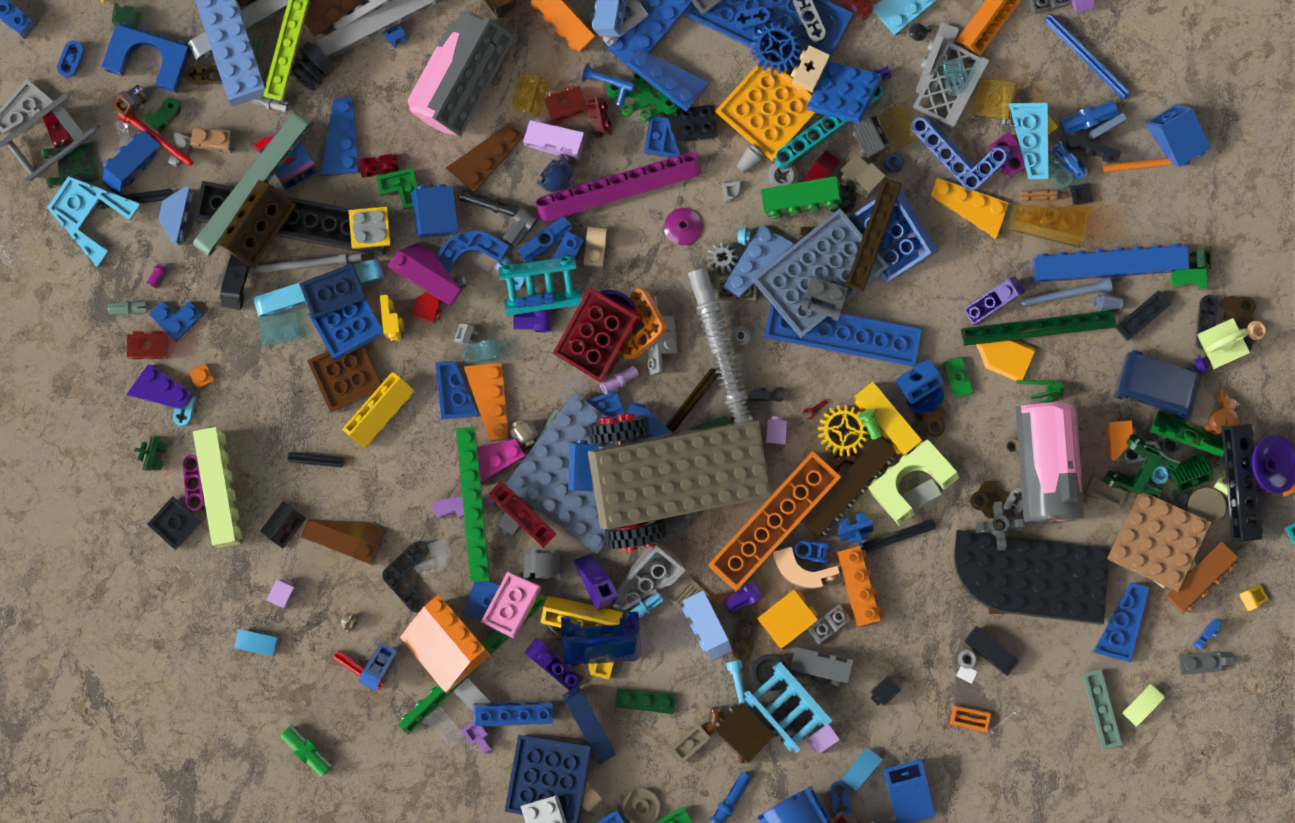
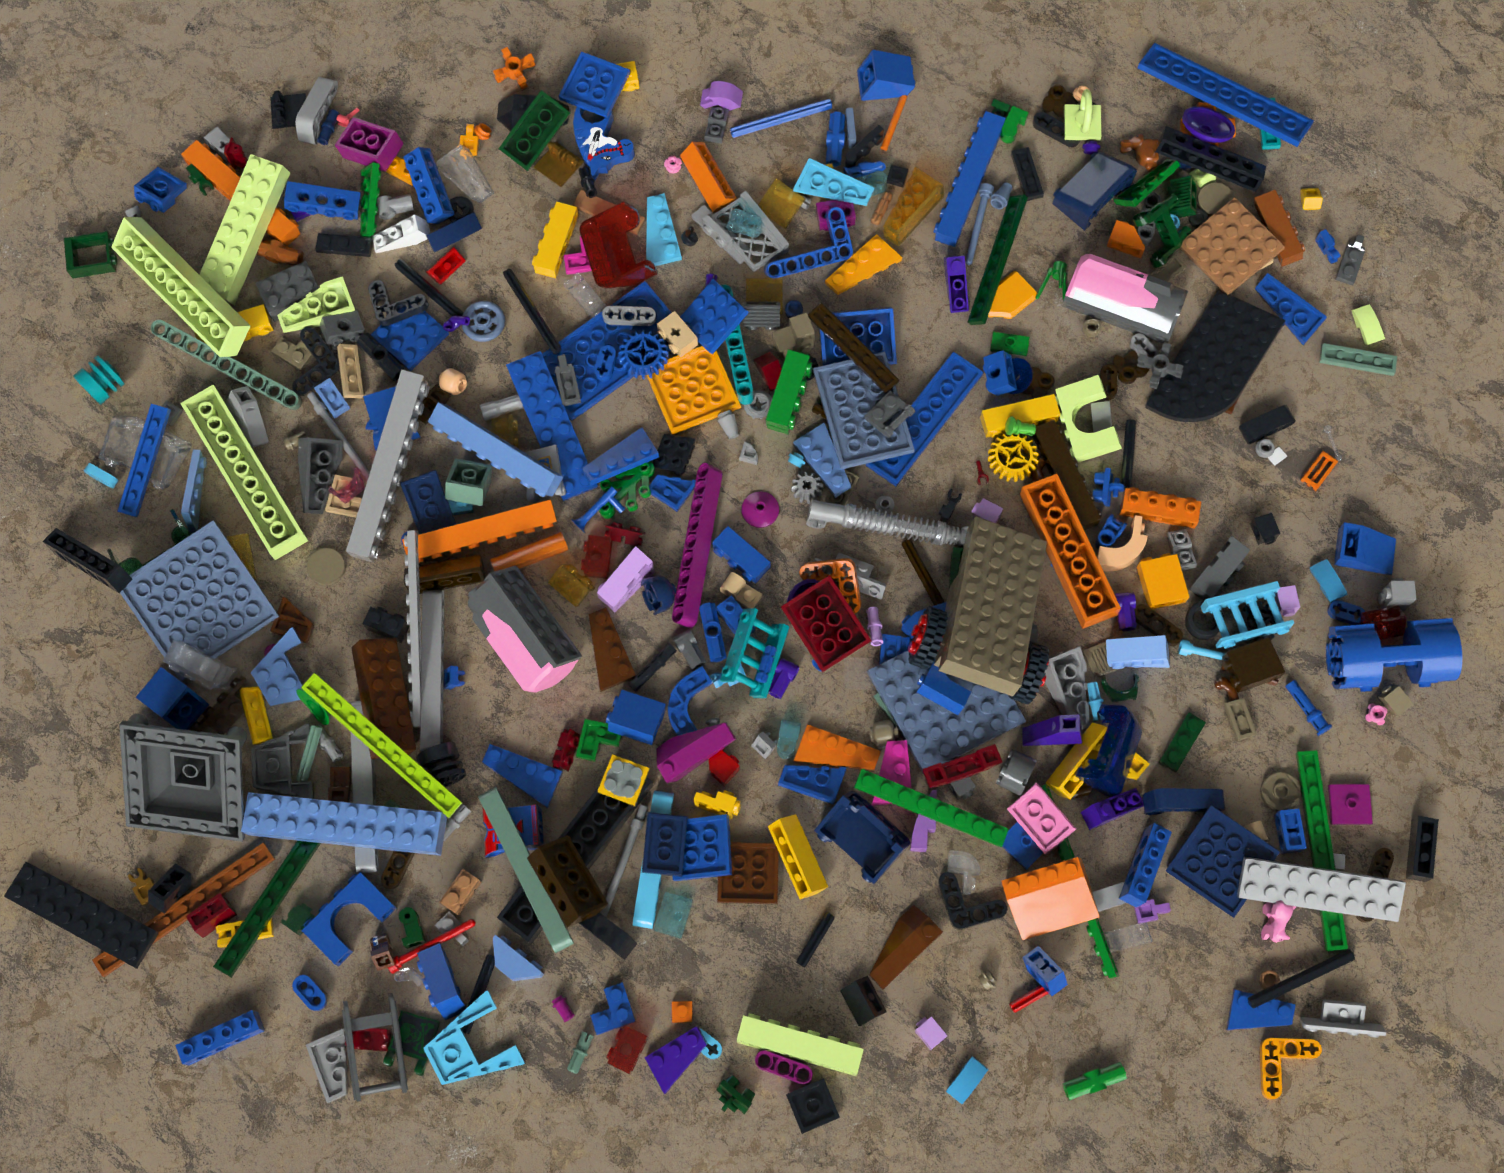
camera: 65 degrees left, 10 degrees down
(426, 458) = (863, 835): none -> dark blue windscreen
(539, 42) = (531, 553): none -> orange brick
(628, 230) = (741, 555): none -> blue brick
(663, 632) = (1117, 695): none -> dark green helmet
(966, 490) = (1112, 382): none -> dark brown beam

